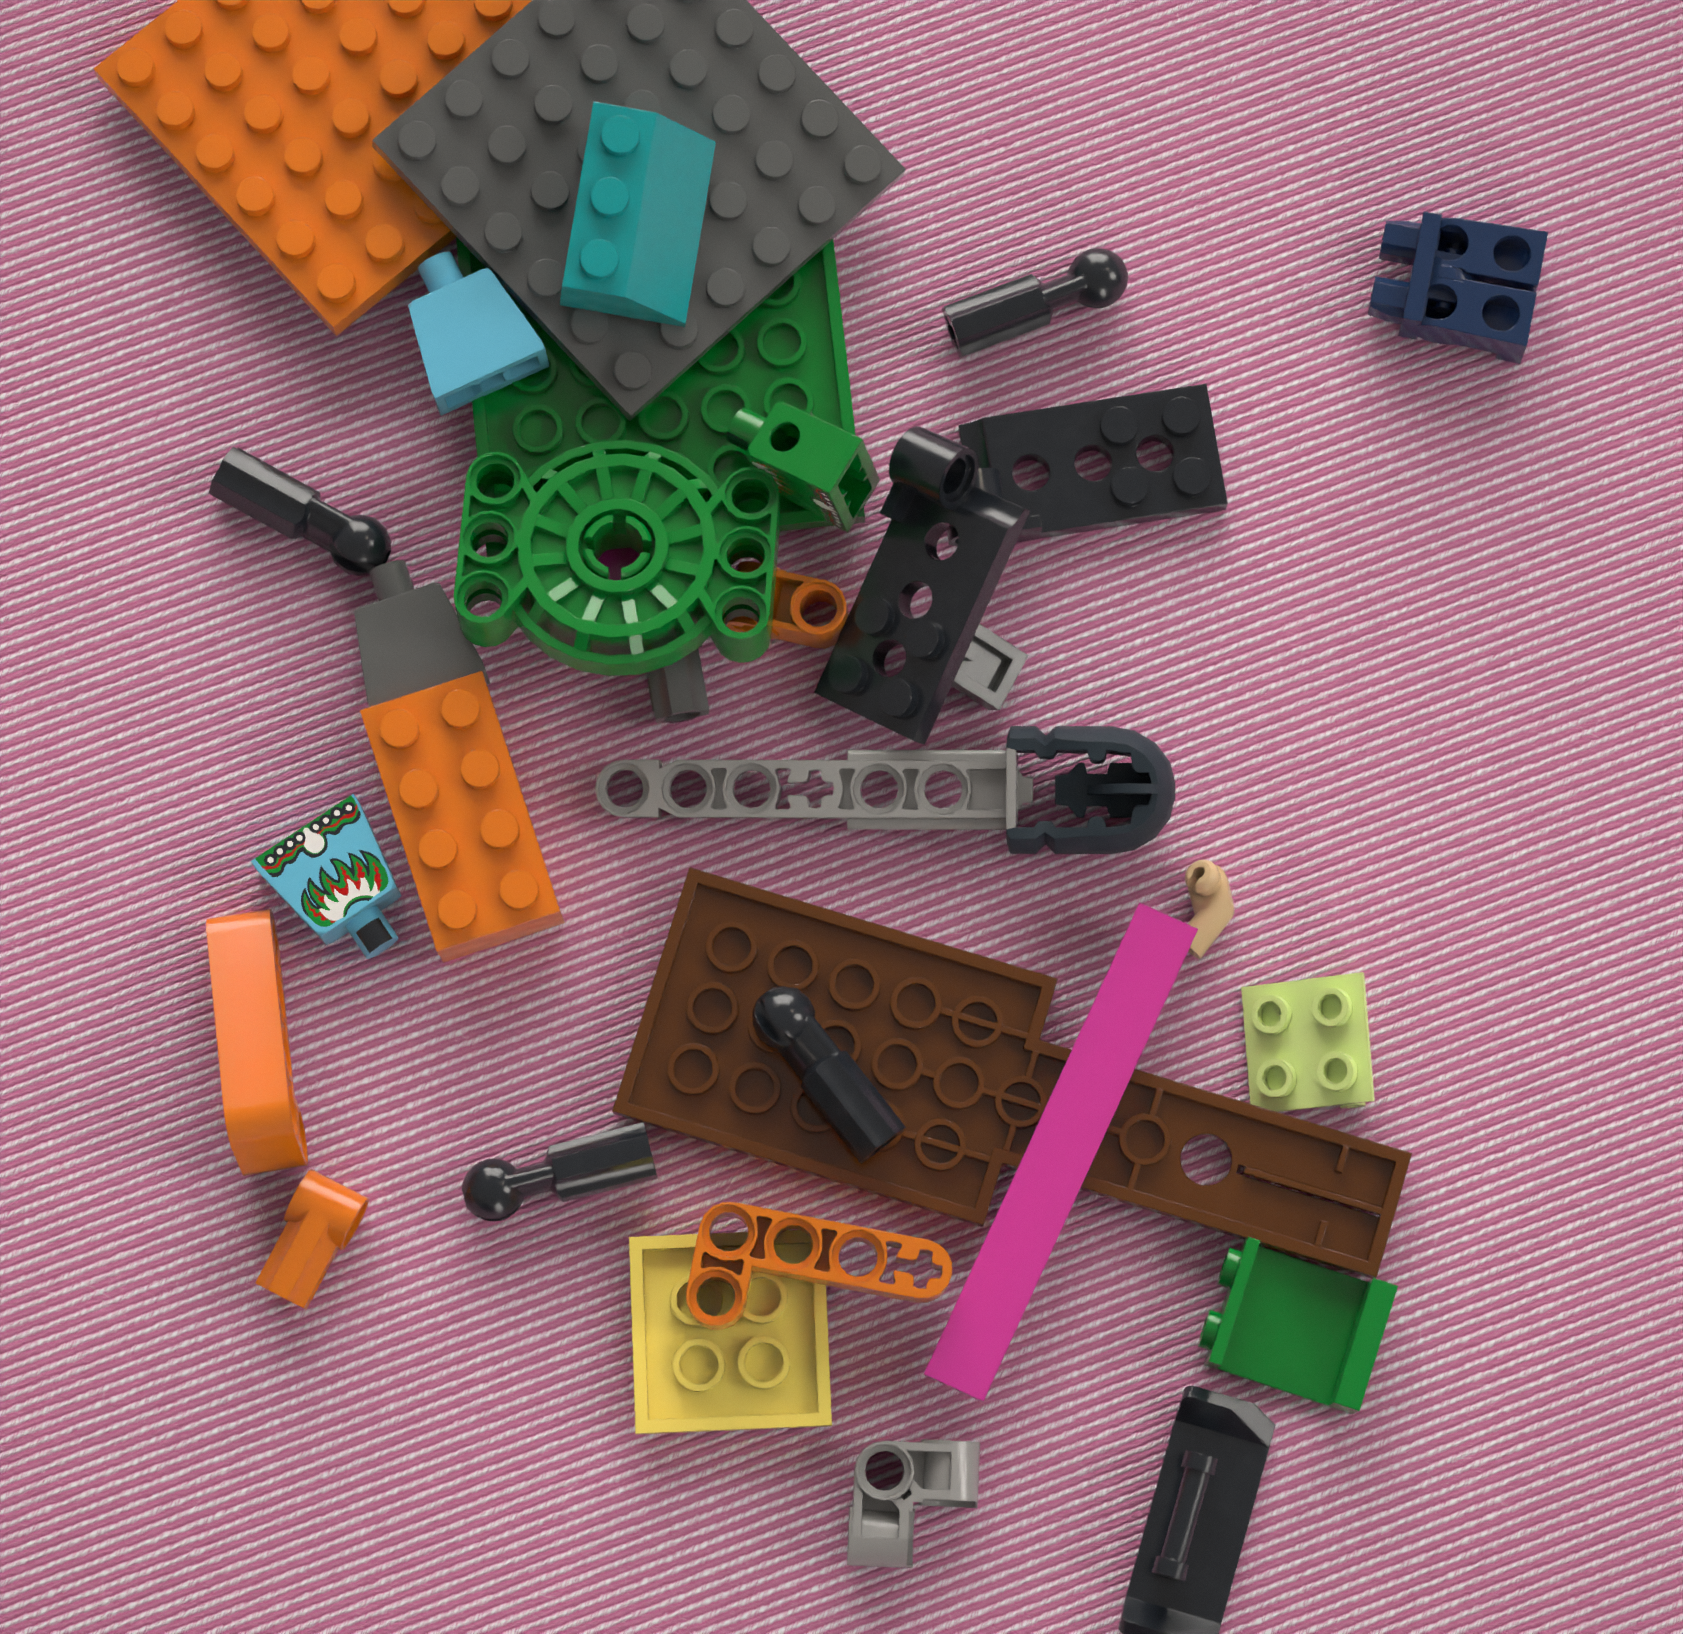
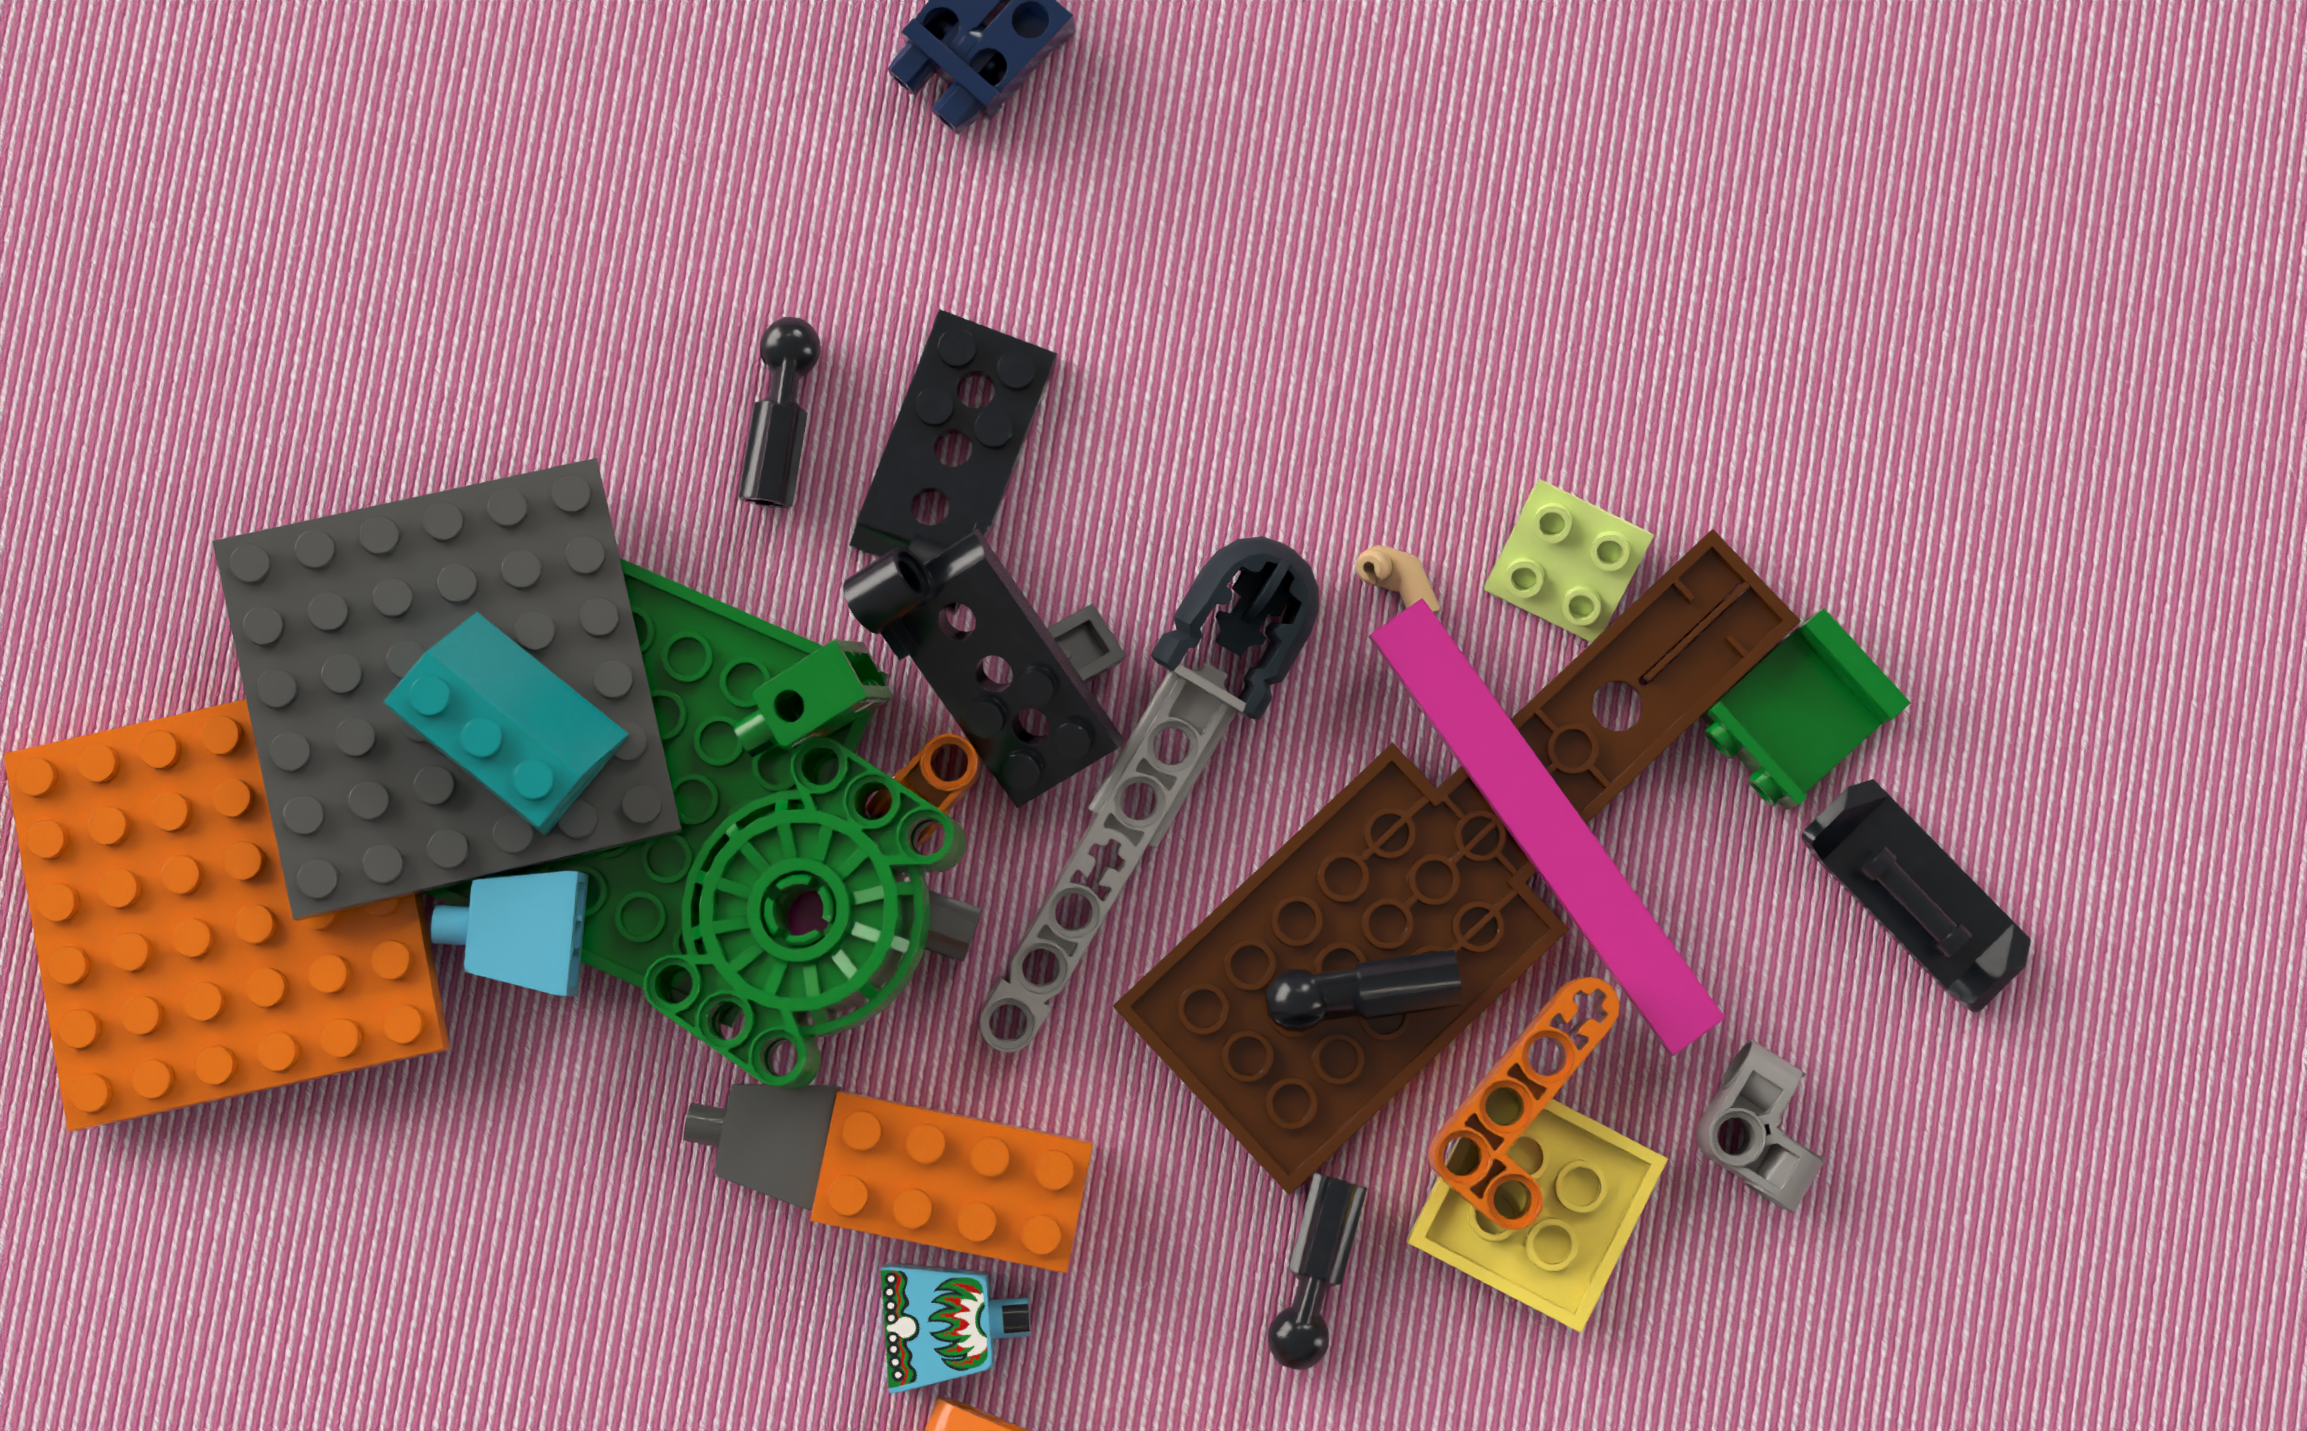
camera: 65 degrees left, 5 degrees up
(296, 510) = (586, 1173): black piece -> none

